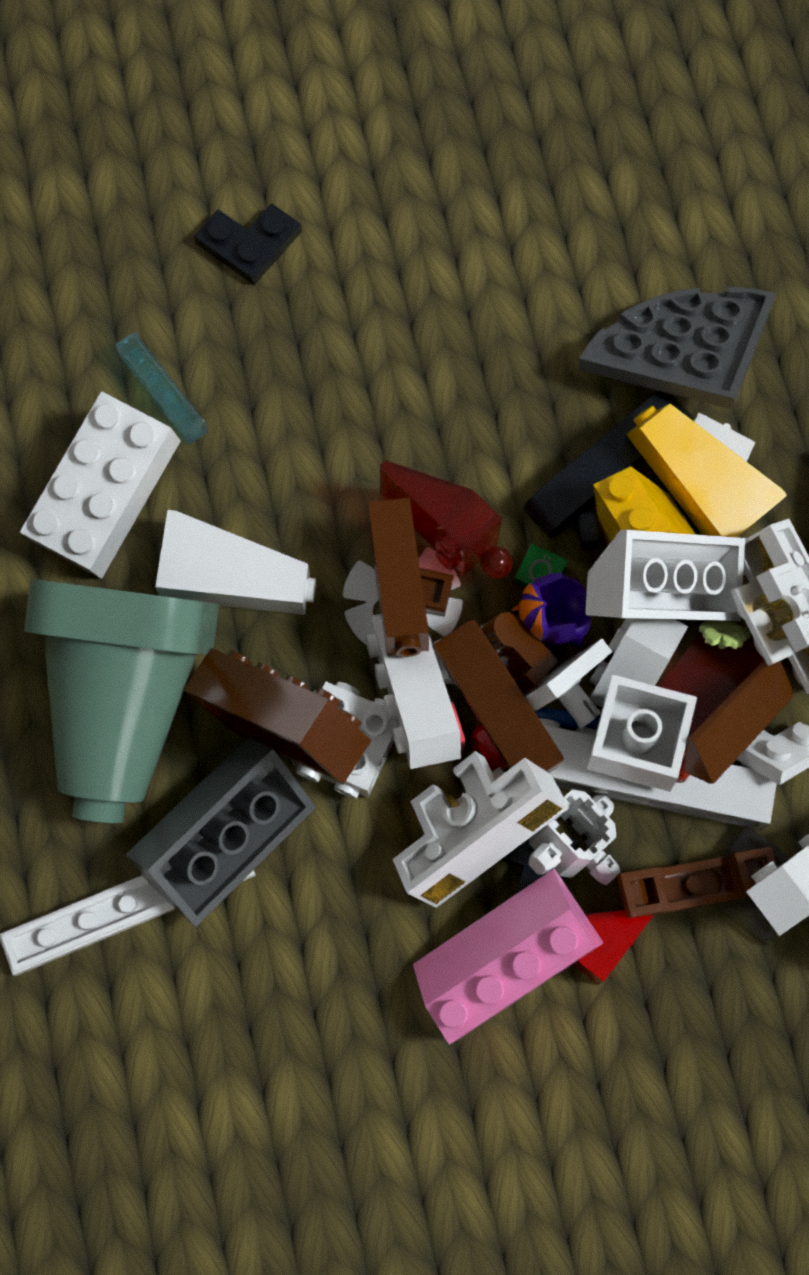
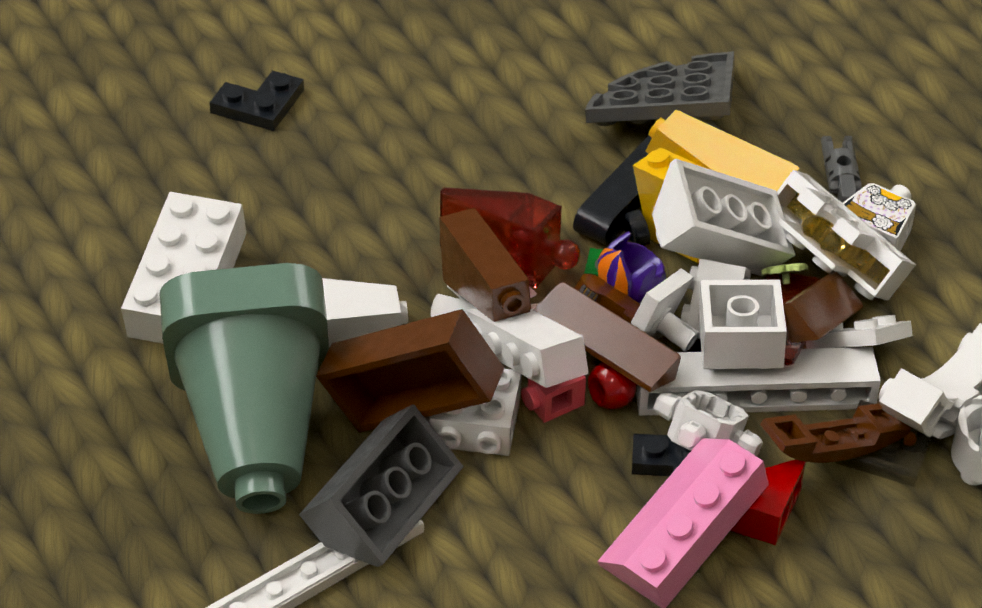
camera: 15 degrees left, 30 degrees down
(161, 388) = (188, 183): clear light blue piece -> none
(477, 828) = (626, 425): white piece -> none

